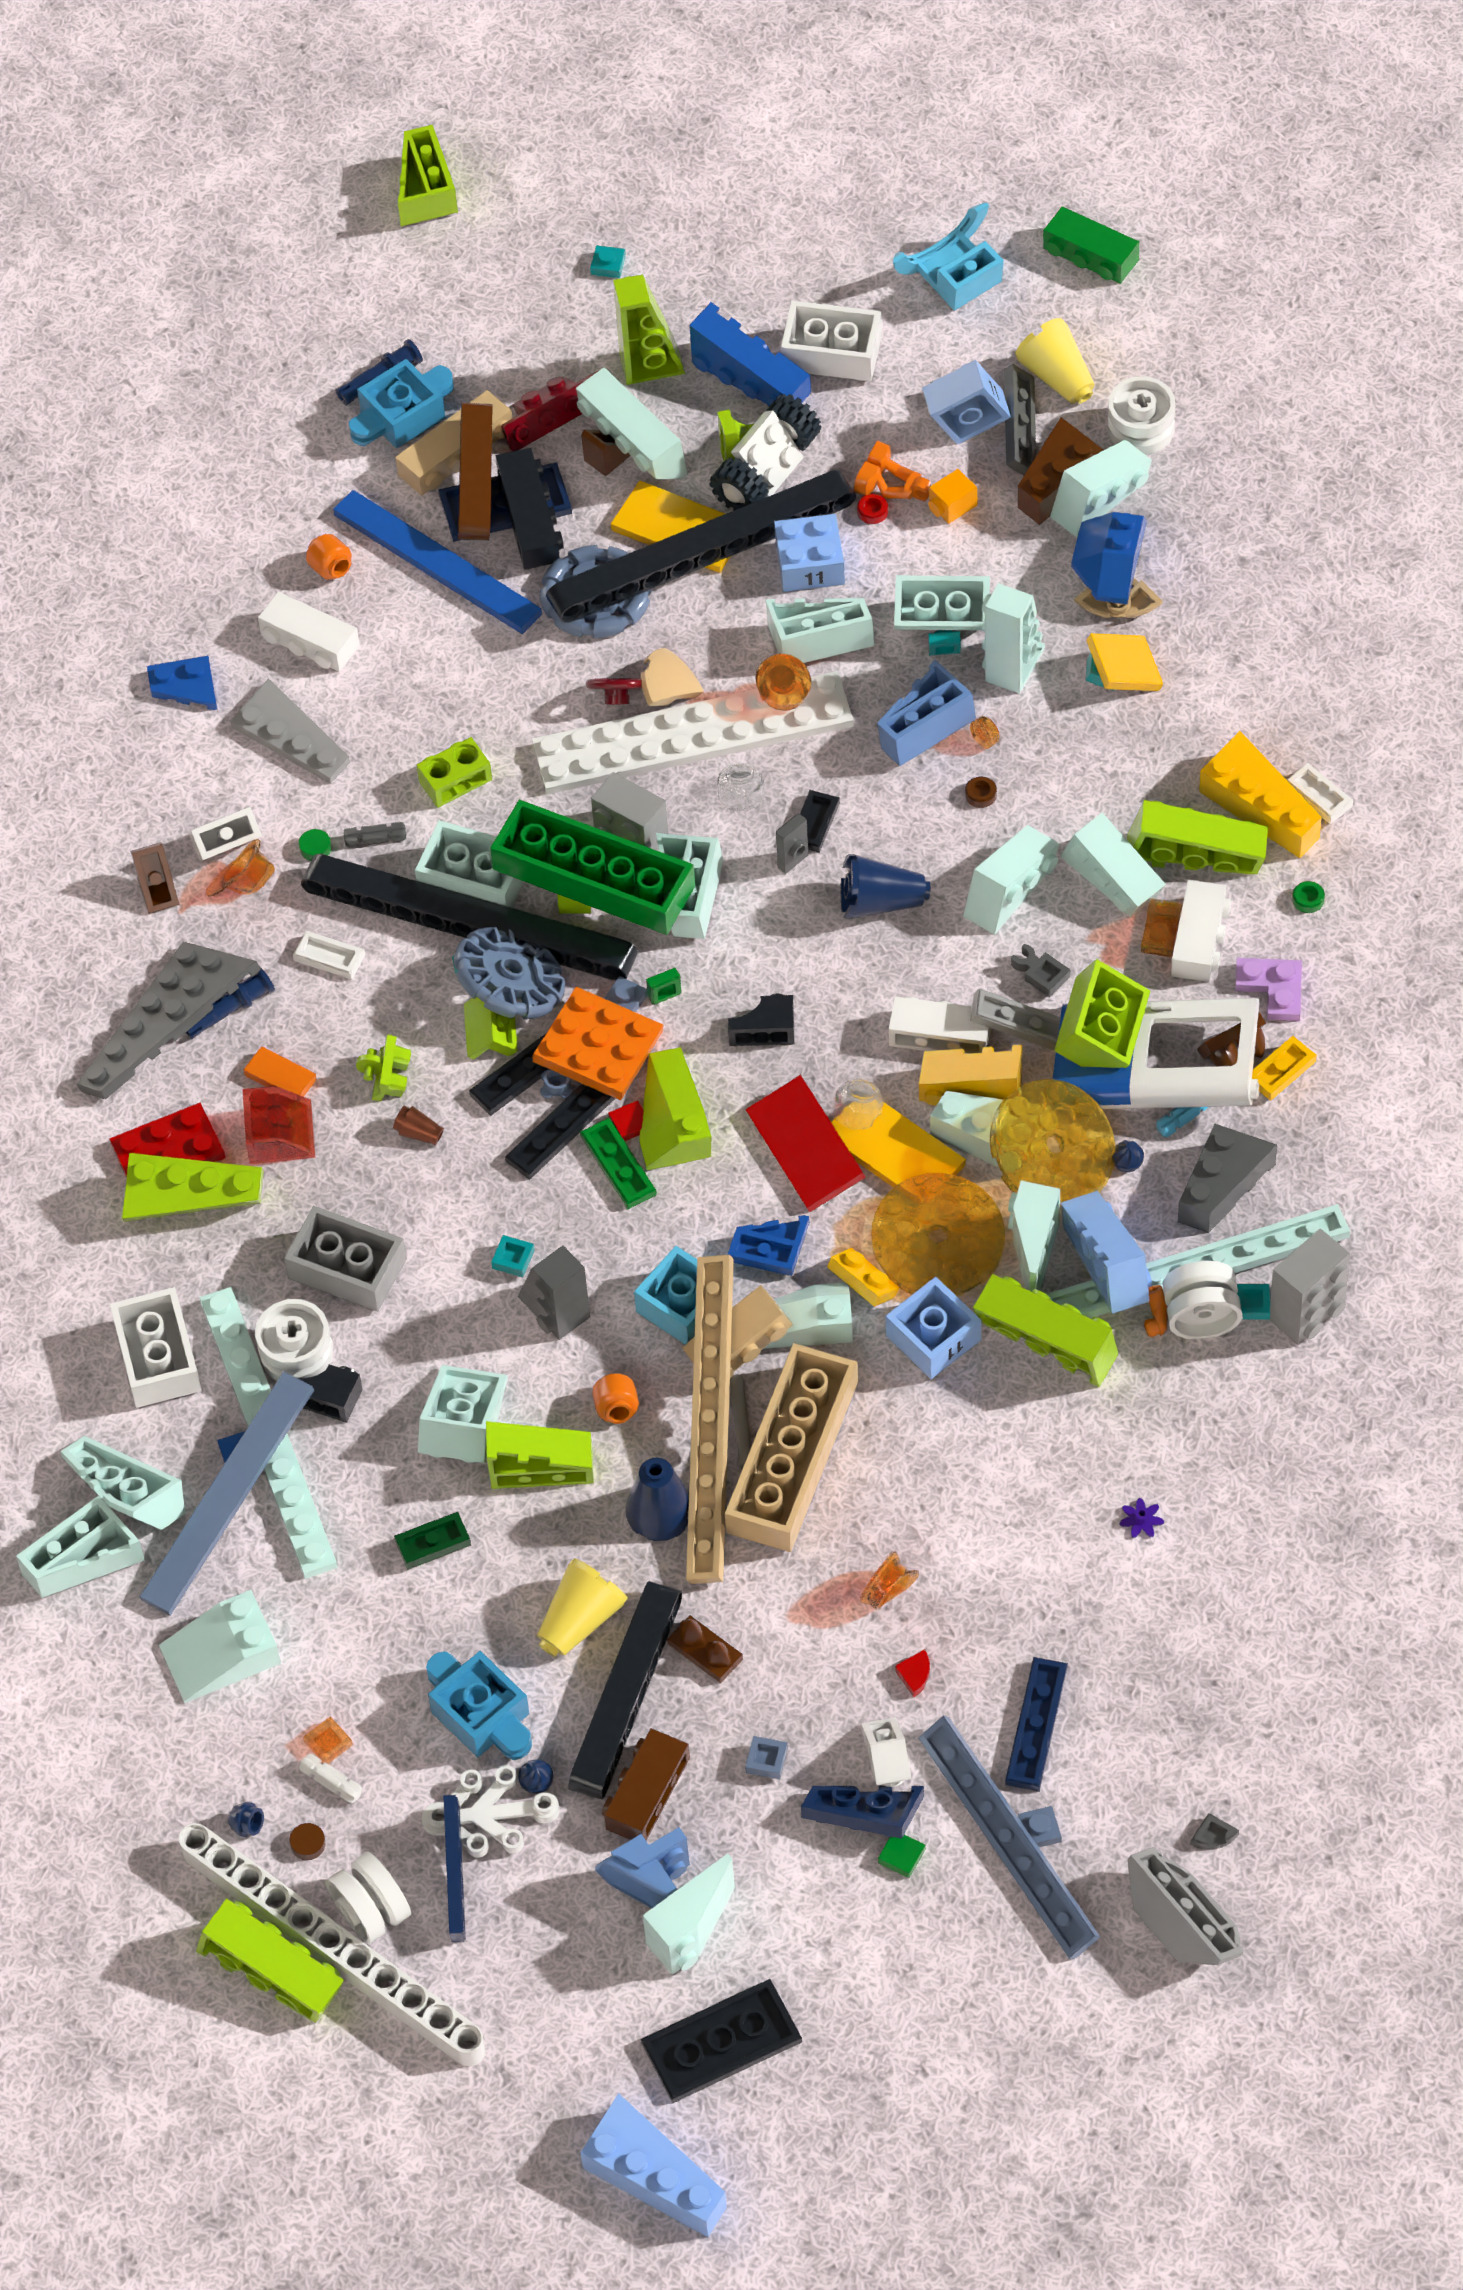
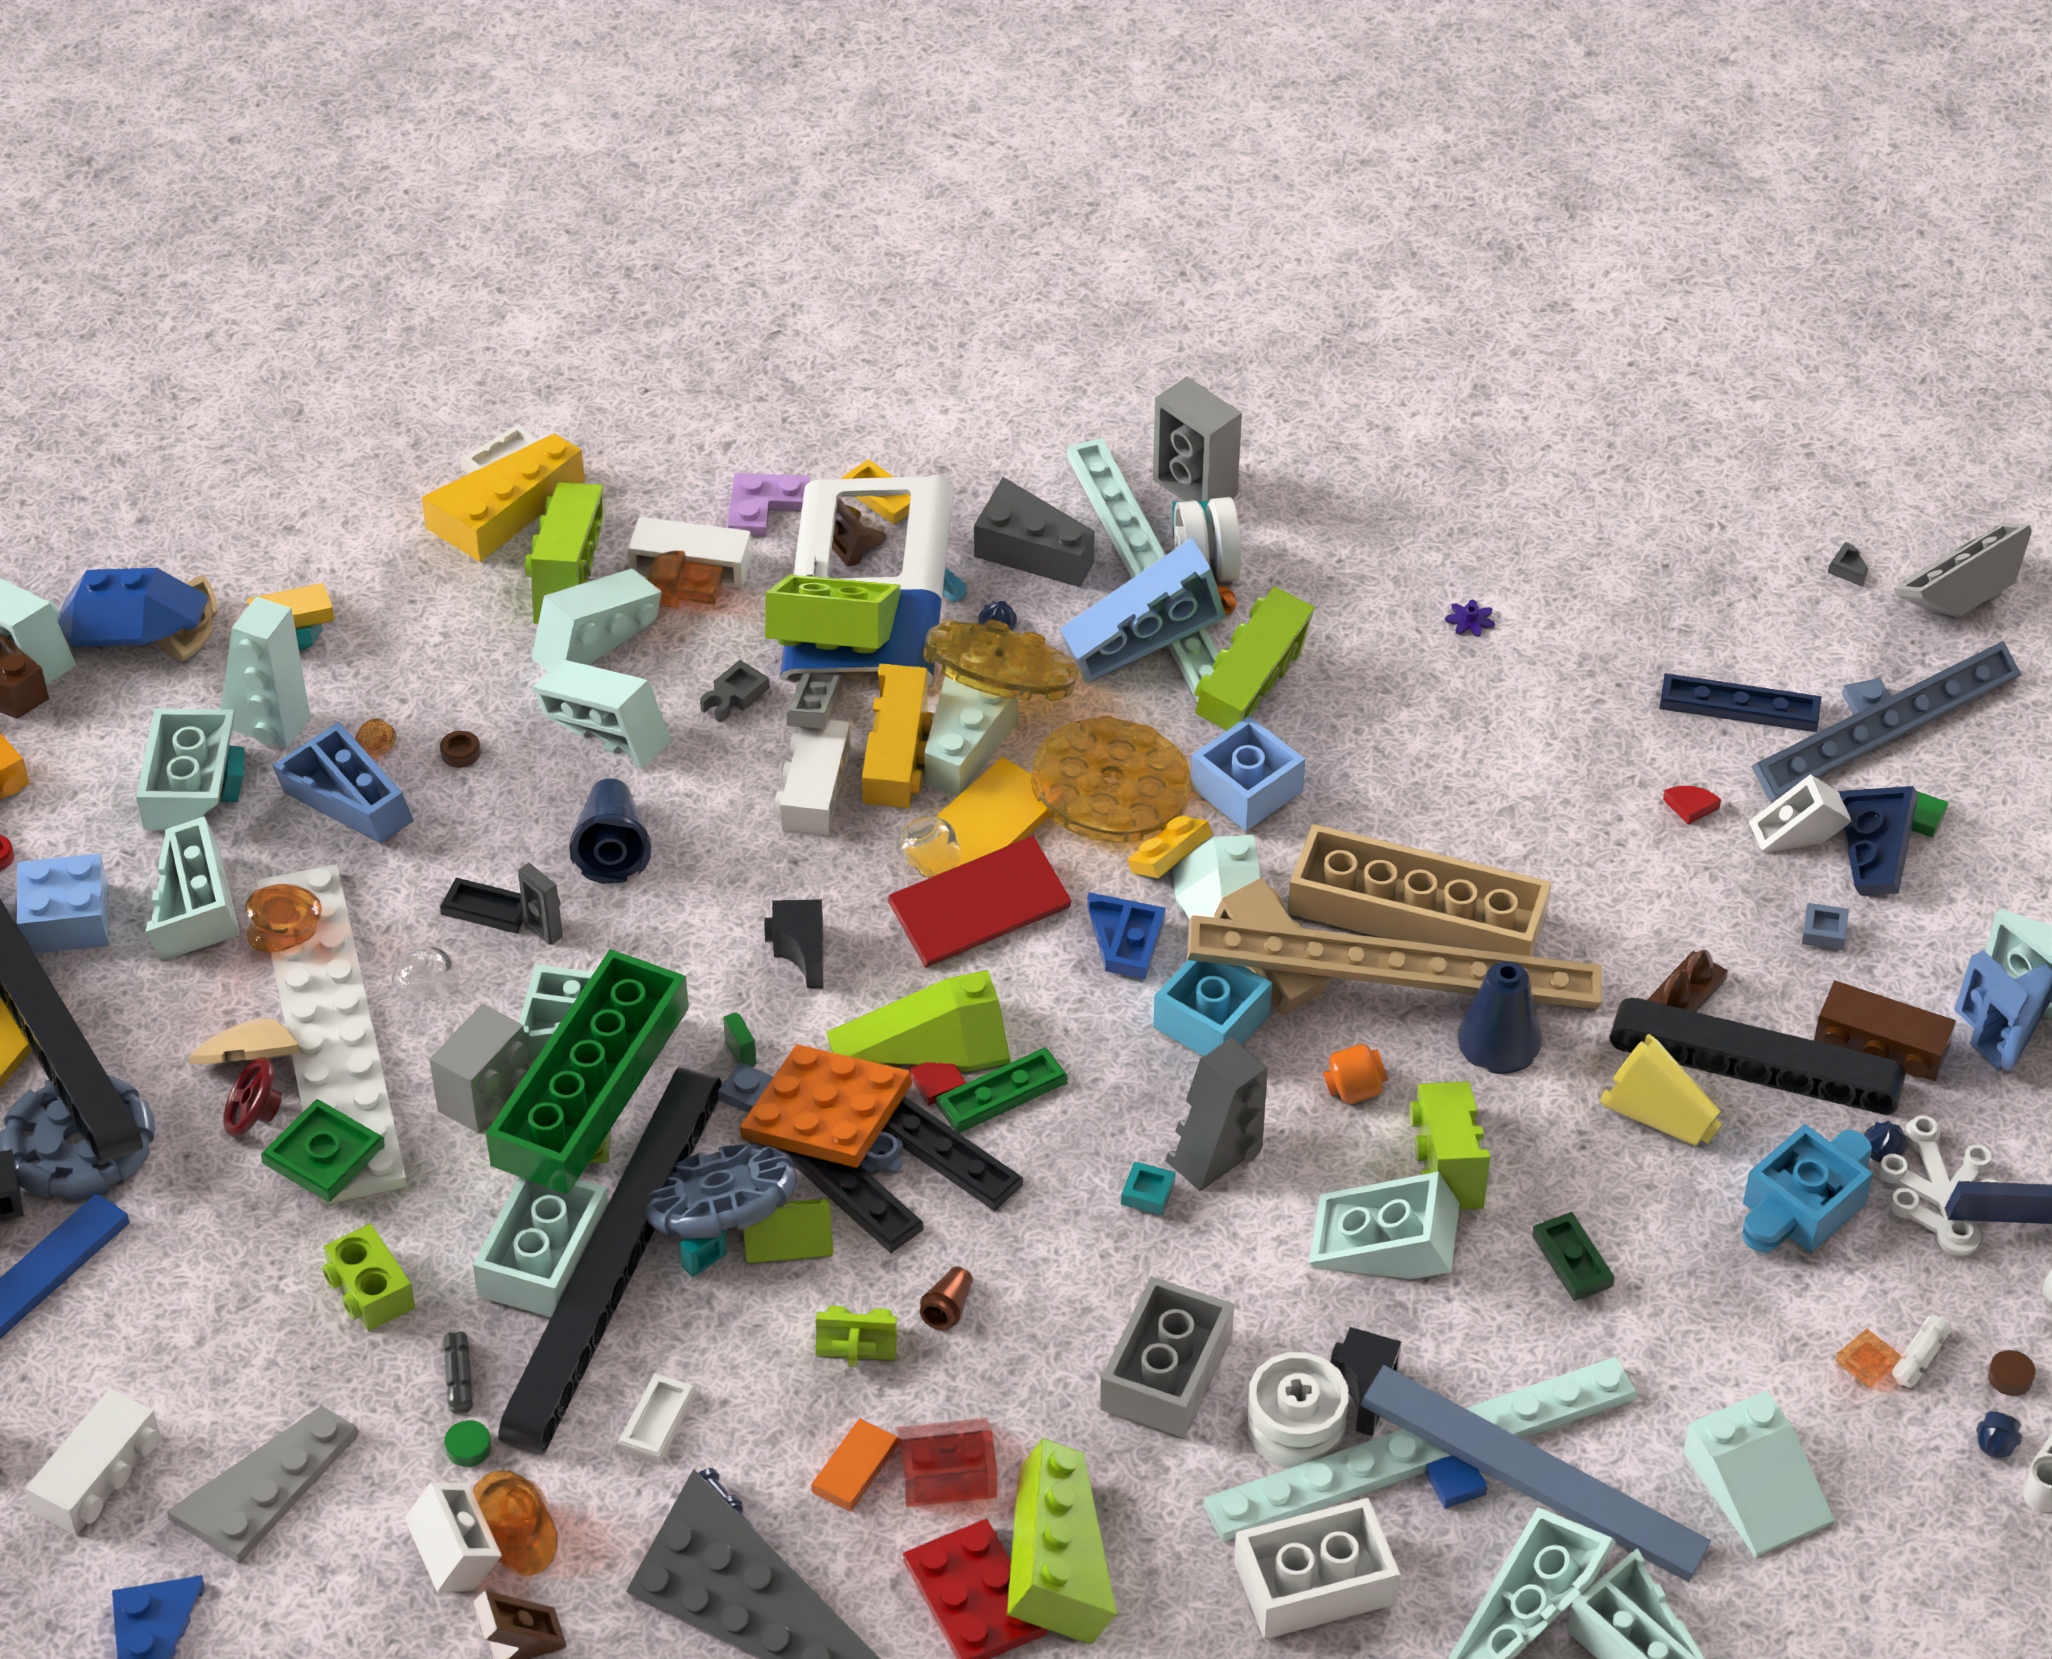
camera: 95 degrees left, 10 degrees down
(563, 731) = (322, 1150): none -> green tile
(888, 1582) = (1590, 813): clear orange piece -> none
(1034, 1227) = (1131, 679): light aqua slope -> none
(1308, 897) = (642, 471): green tile -> none

